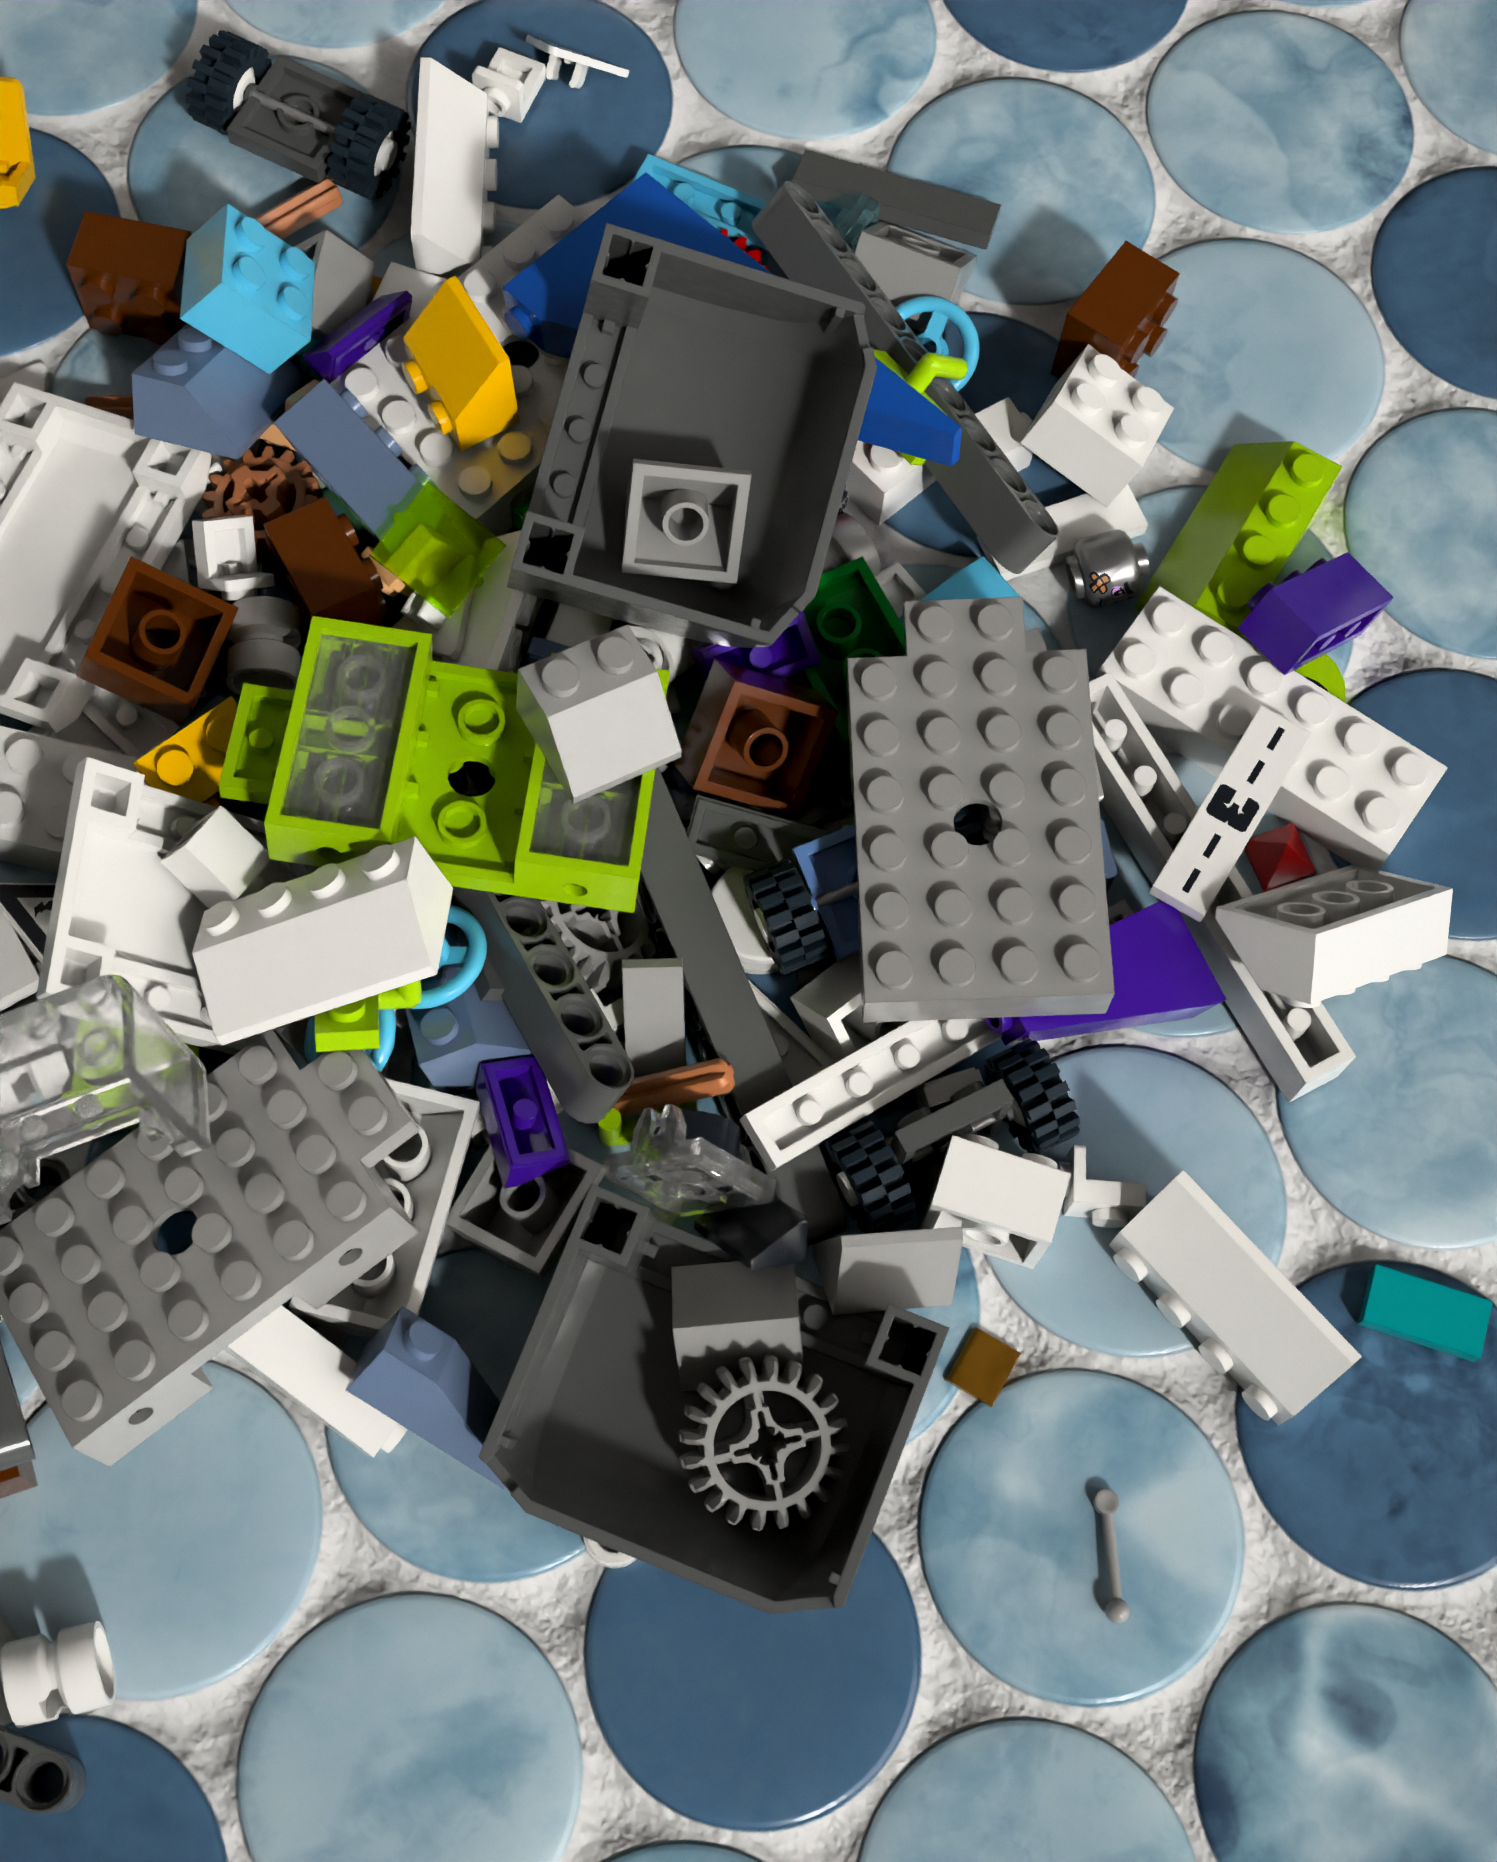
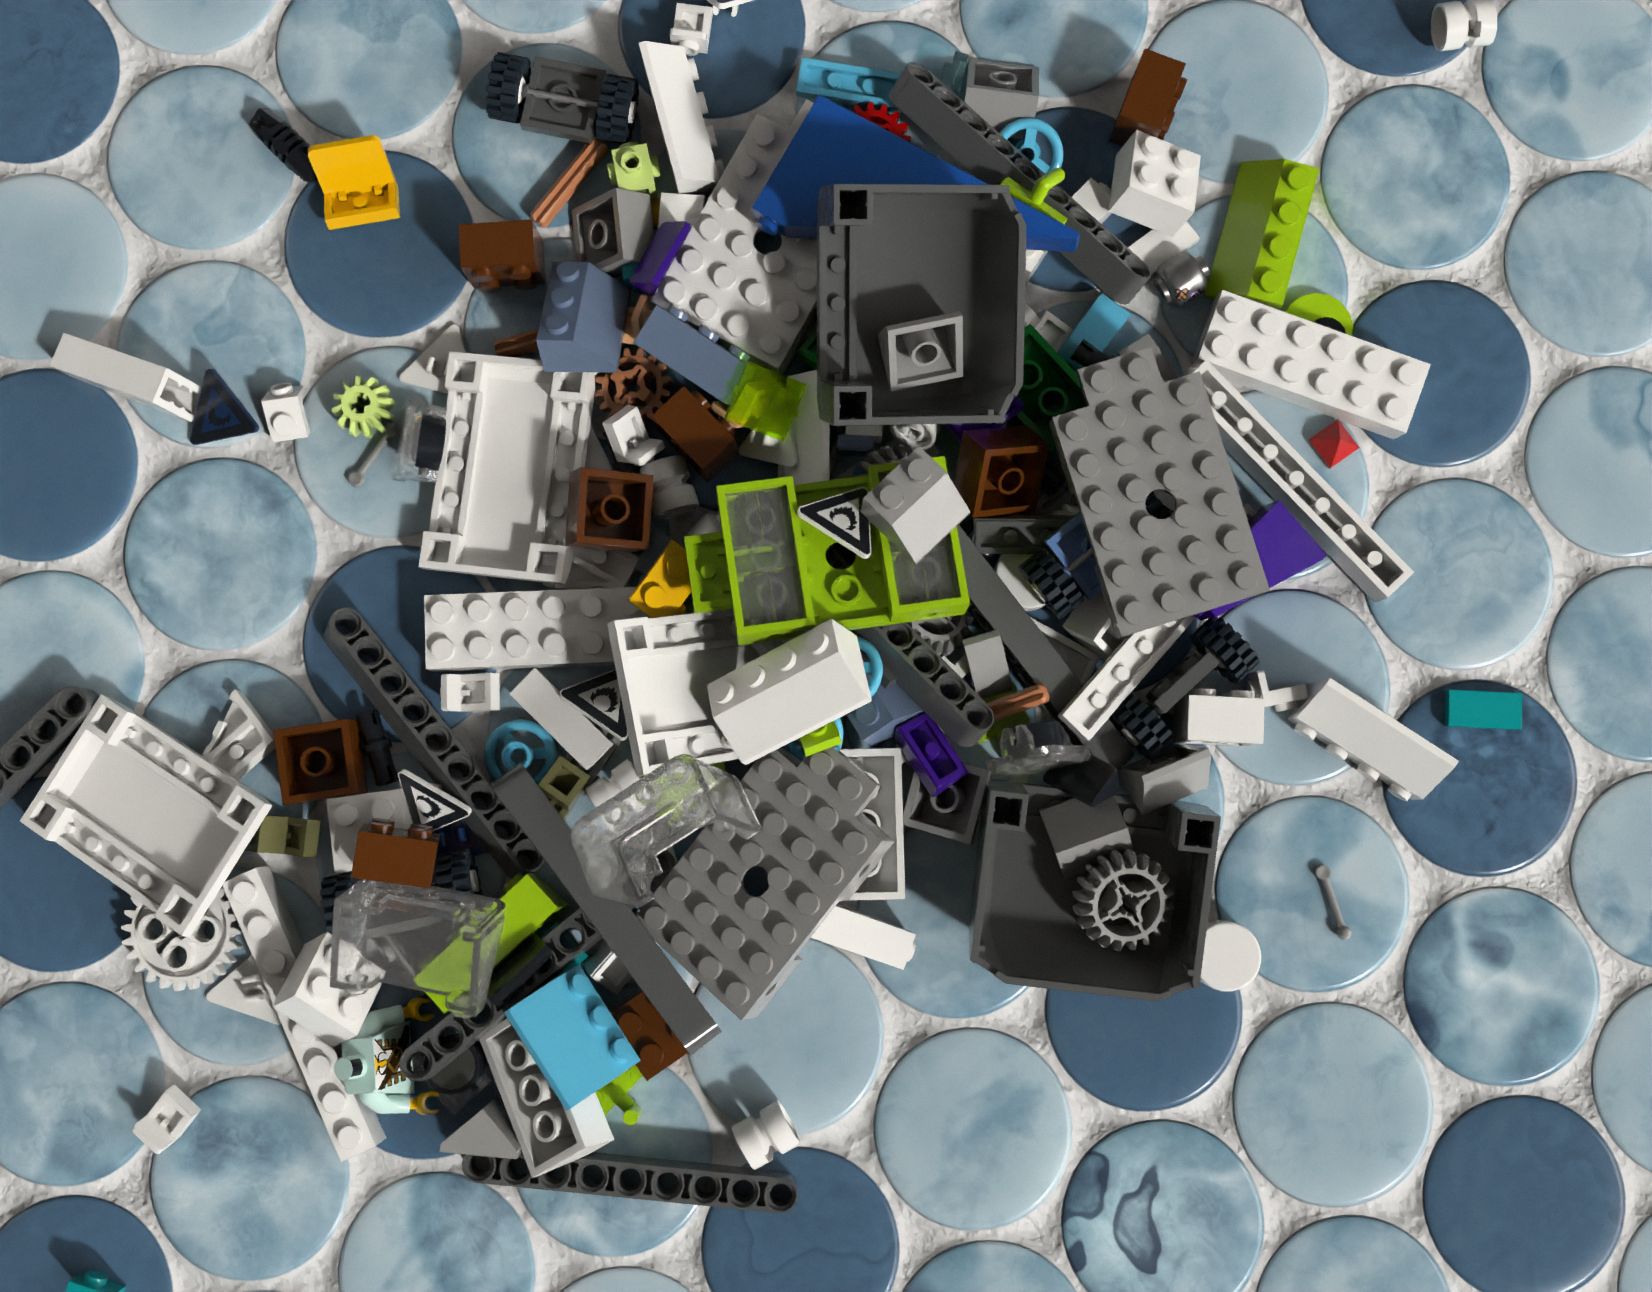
camera: 10 degrees left, 15 degrees up
(218, 859) = (704, 651): white brick -> none
(248, 289) = (584, 251): medium azure brick -> none
(368, 224) = (634, 168): none -> yellowish green brick
(427, 1387) = (924, 924): sand blue slope -> none
(460, 368) = (741, 274): yellow slope -> none
(482, 714) = (841, 520): none -> black piece
(900, 199) = (977, 40): dark grey tile -> none
(909, 1589) = (1229, 956): none -> white head
(942, 1088) = (1175, 654): white tile -> none
(982, 1366) = (1233, 812): pearl gold piece -> none
(1230, 813) = (1305, 436): white tile -> none
(1313, 611) = (1323, 278): dark purple brick -> none
(1337, 932) = (1385, 494): white slope -> none

